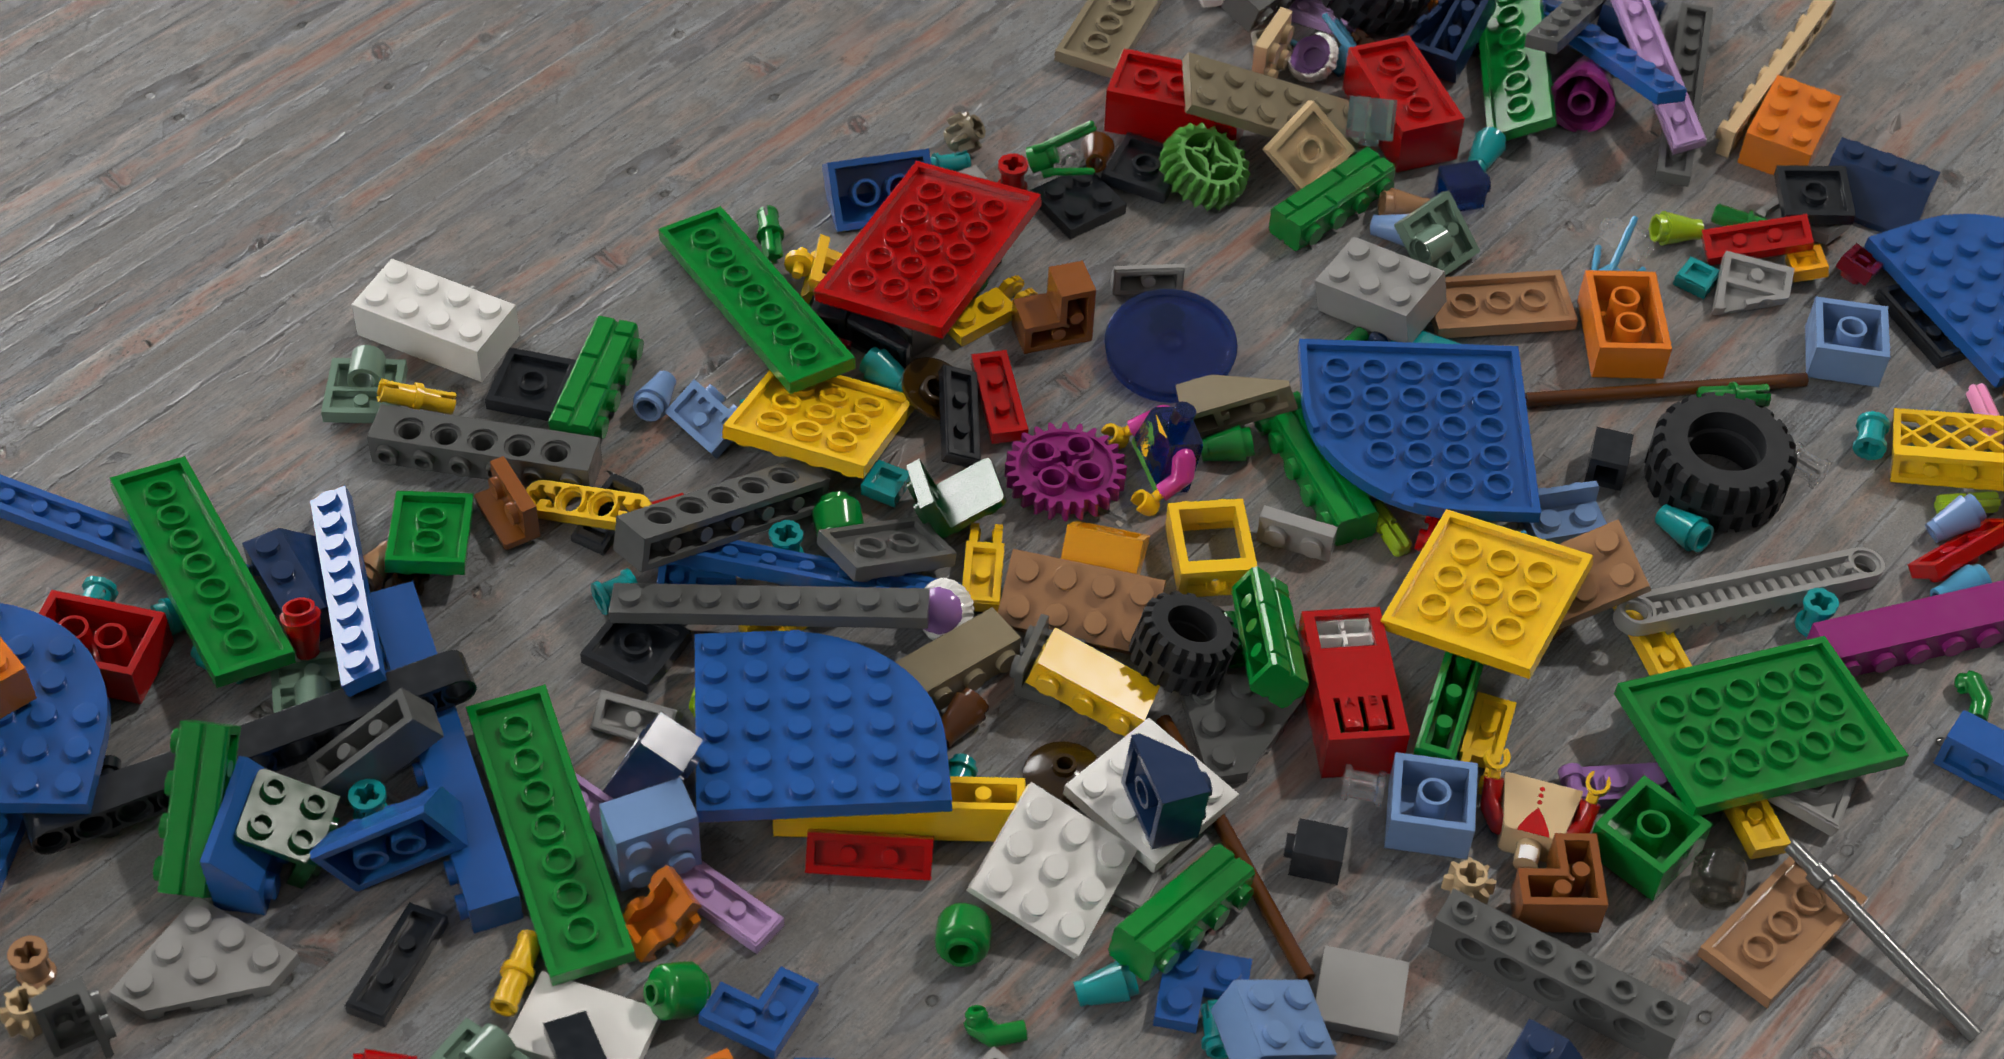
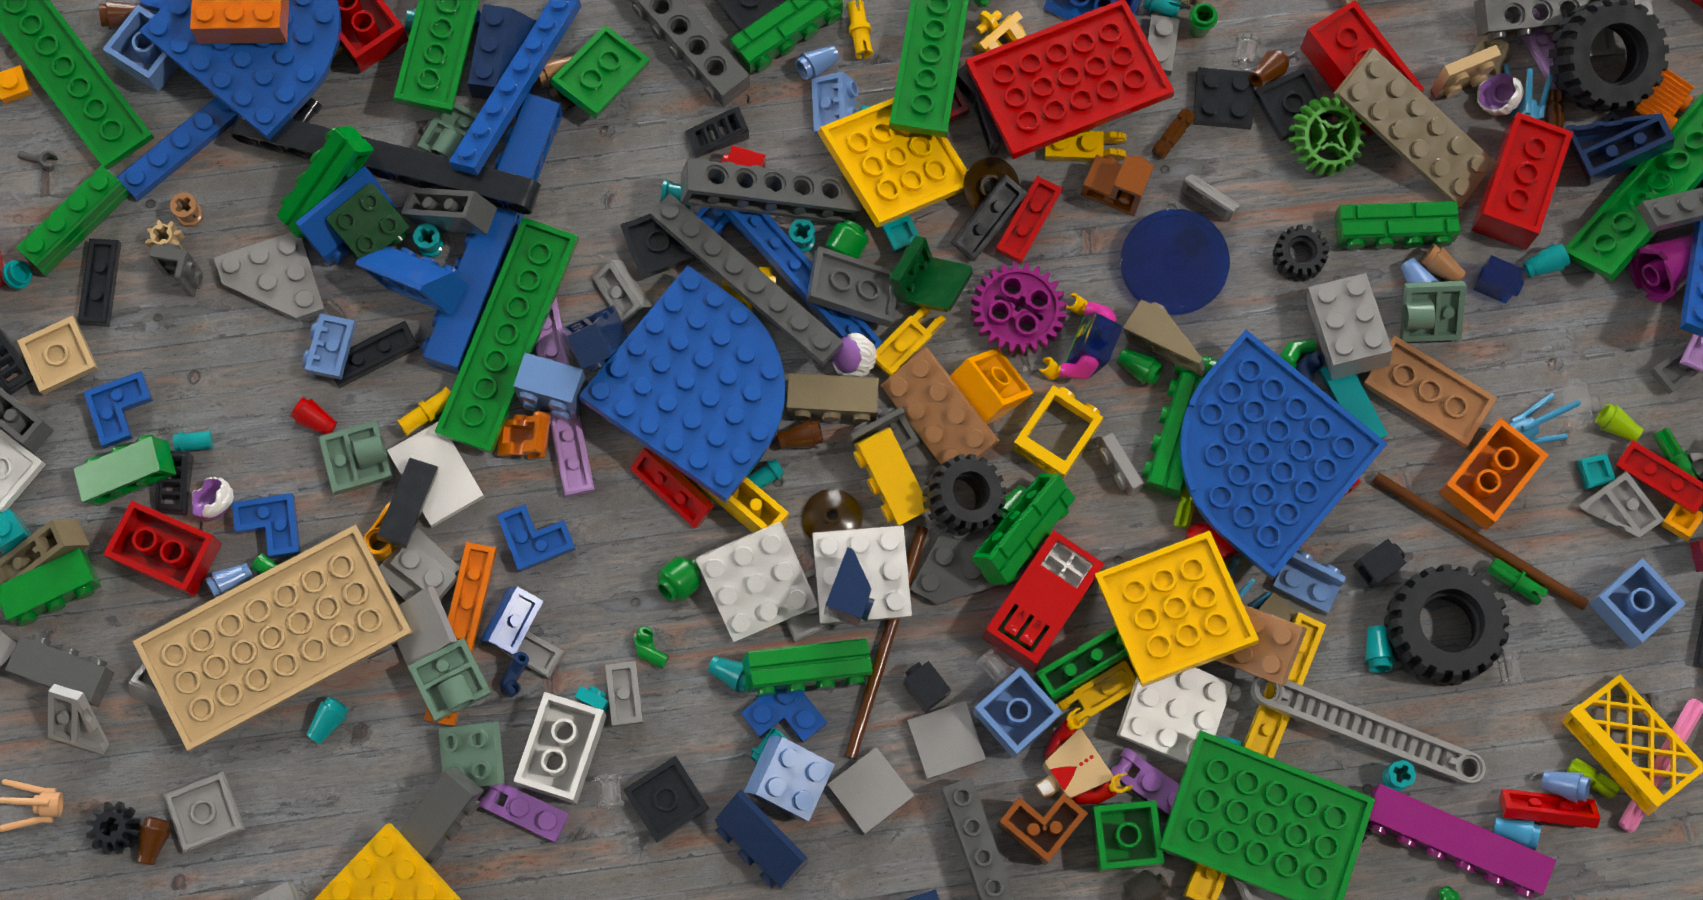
camera: 40 degrees right, 25 degrees up
(302, 625) = (471, 92): red cone -> none
(342, 981) = (329, 346): none -> medium blue bracket
(508, 506) = (660, 85): dark orange bracket -> none
(587, 511) = (704, 122): yellow beam -> none
(674, 345) = (859, 29): none -> yellow pin
(677, 990) = (495, 492): green head -> none
(882, 369) = (973, 144): teal cone -> none
(998, 142) = (1202, 19): none -> green cone
(1012, 170) = (1194, 47): red bush -> none
(1044, 155) = (1225, 50): green plant -> none
(1060, 244) = (1173, 133): none -> reddish brown axle
(1270, 284) = (1307, 238): none -> black tyre
(1308, 146) = (1408, 175): tan plate -> none
(1371, 120) = (1473, 185): clear light blue brick -> none
(1385, 891) = (946, 740): none -> light grey tile
(1471, 879) = (993, 768): tan gear -> none
(1569, 704) = (1173, 711): none -> white plate
(1872, 431) = (1580, 682): teal bush -> none

